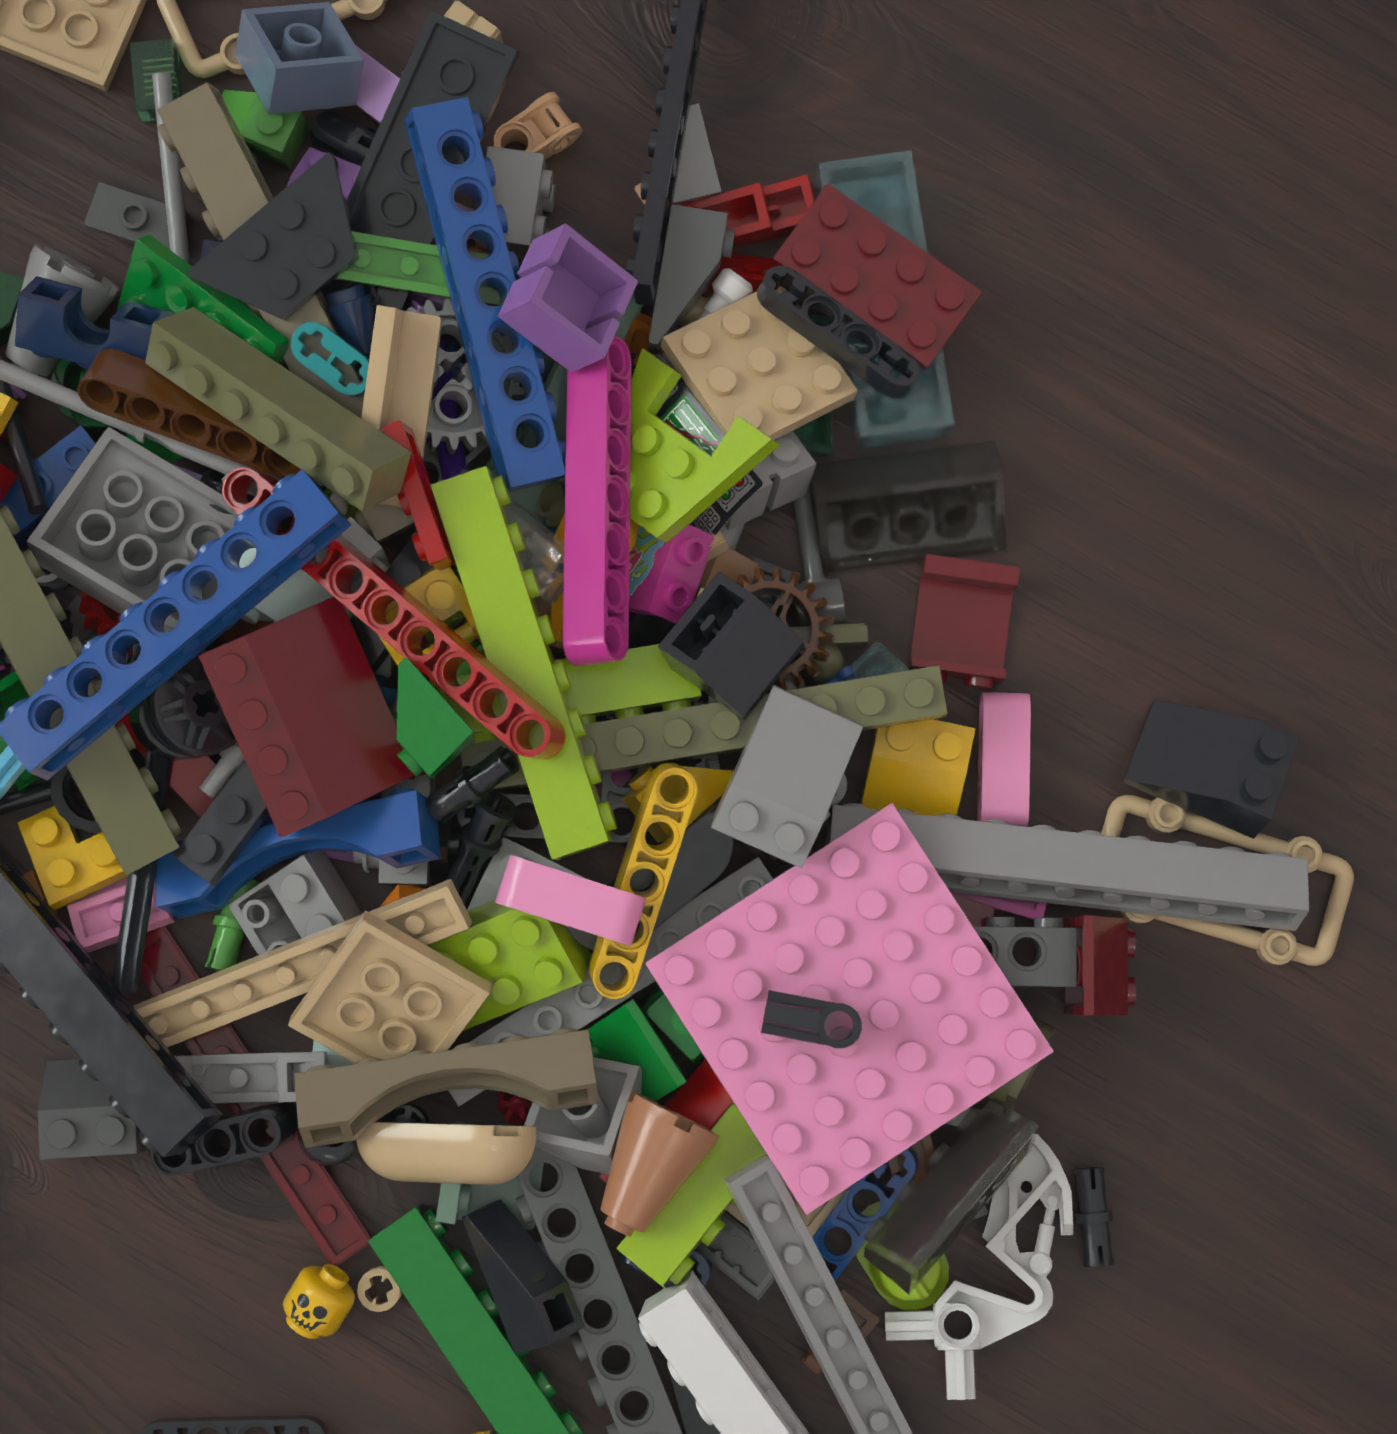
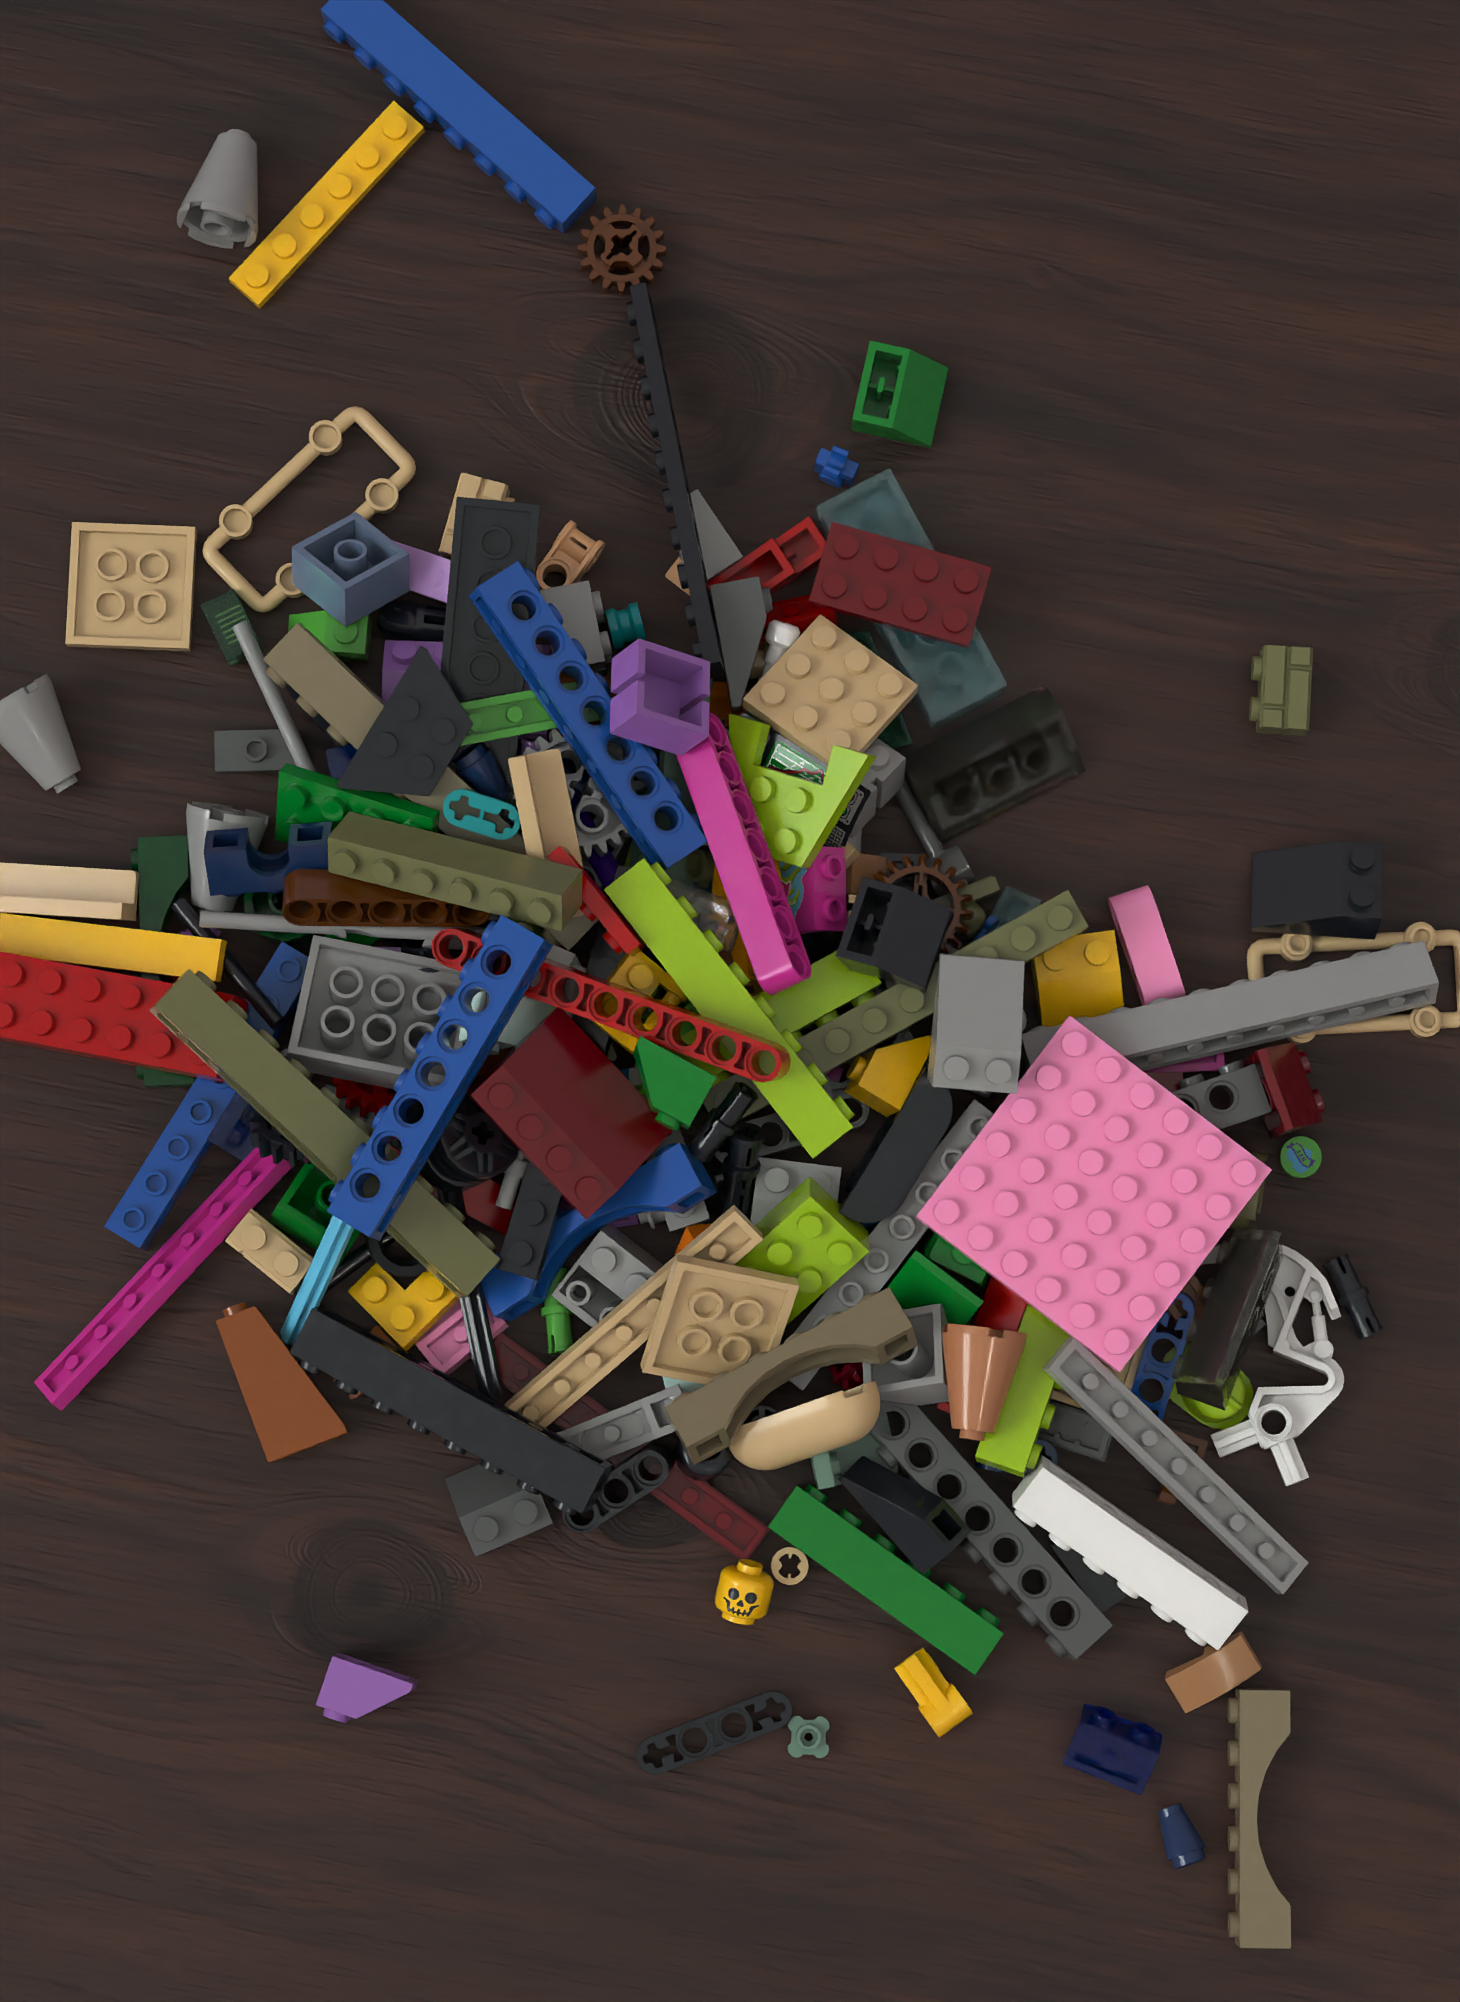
camera: 20 degrees left, 0 degrees up
(570, 900) = (839, 1186): bright pink beam -> none
(576, 216) = (625, 625): none -> teal wheel
(639, 856) = (901, 1167): yellow beam -> none
(804, 1019) = (1063, 1213): black piece -> none
(842, 326) = (883, 649): black beam -> none
(854, 133) = (836, 467): none -> blue plate
(949, 80) = (899, 395): none -> green slope
(963, 619) = (1071, 843): dark red panel -> none
(1089, 1045) = (1300, 1157): none -> bright green tile
(1249, 536) = (1283, 690): none -> olive brick

